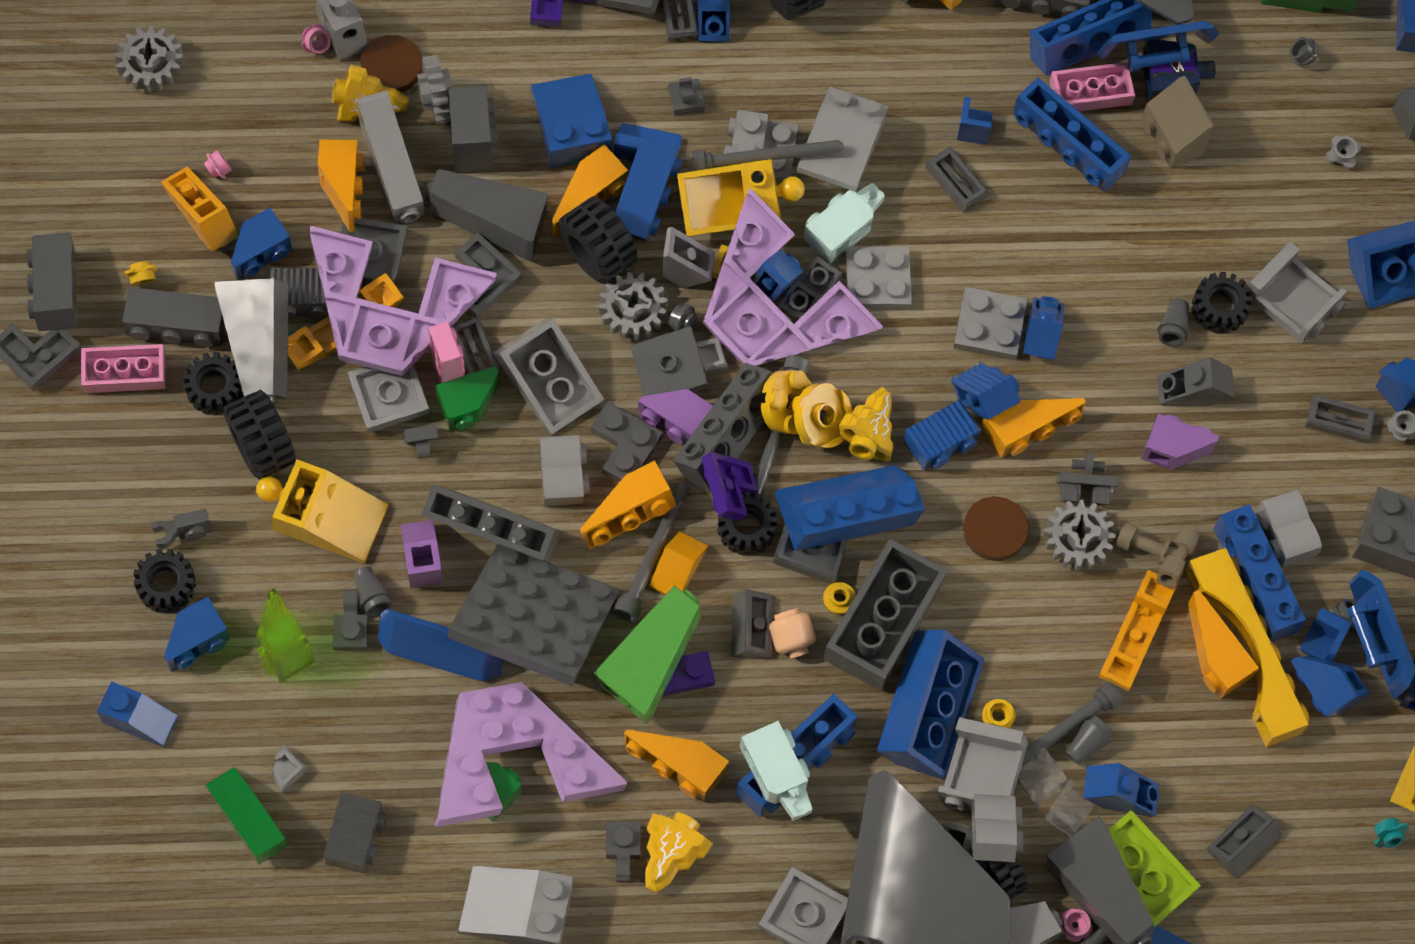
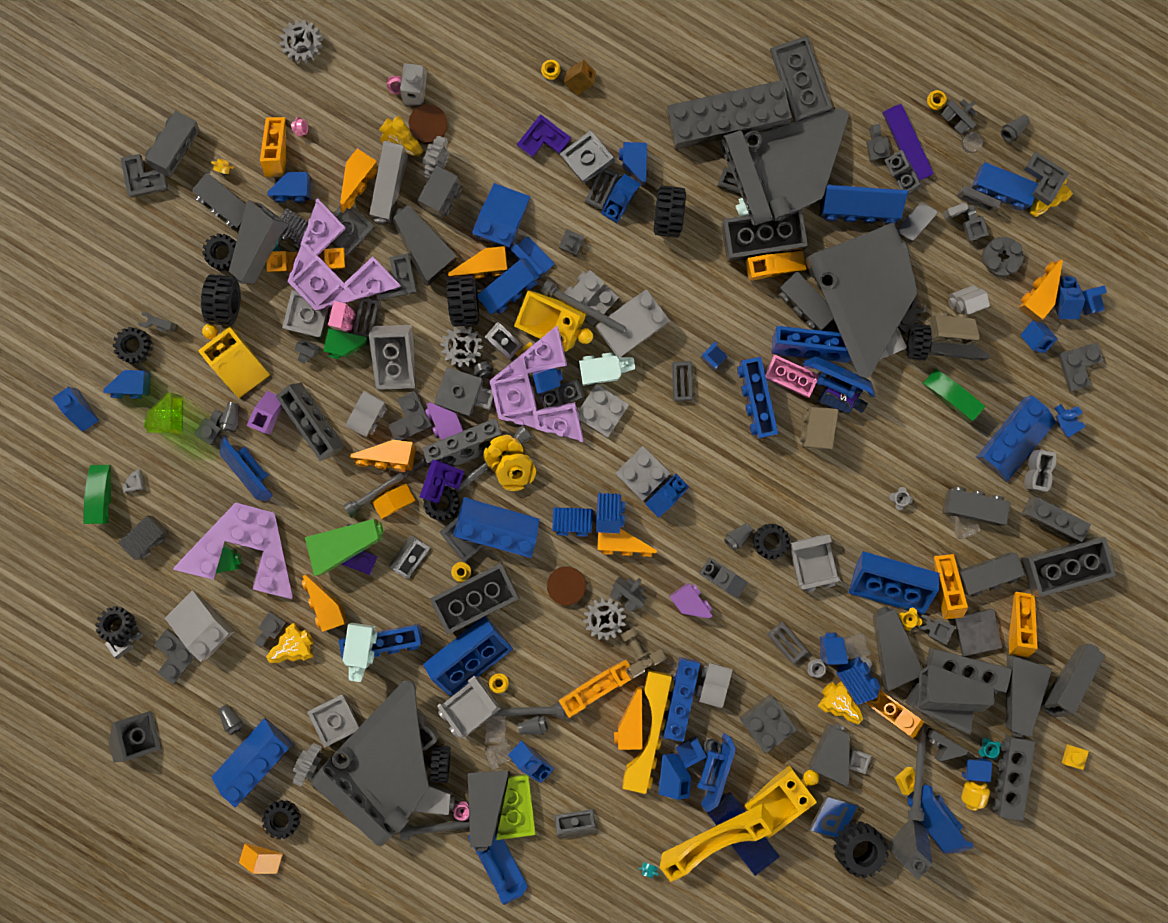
camera: 40 degrees right, 20 degrees up
(123, 368) = (181, 214): bright pink piece -> none
(534, 614) = (297, 486): dark grey plate -> none
(792, 632) = (424, 575): light nougat head -> none
(870, 428) = (538, 492): yellow rock -> none
(995, 828) = (444, 749): light grey brick -> none
(1304, 51) = (922, 428): dark grey plate -> none

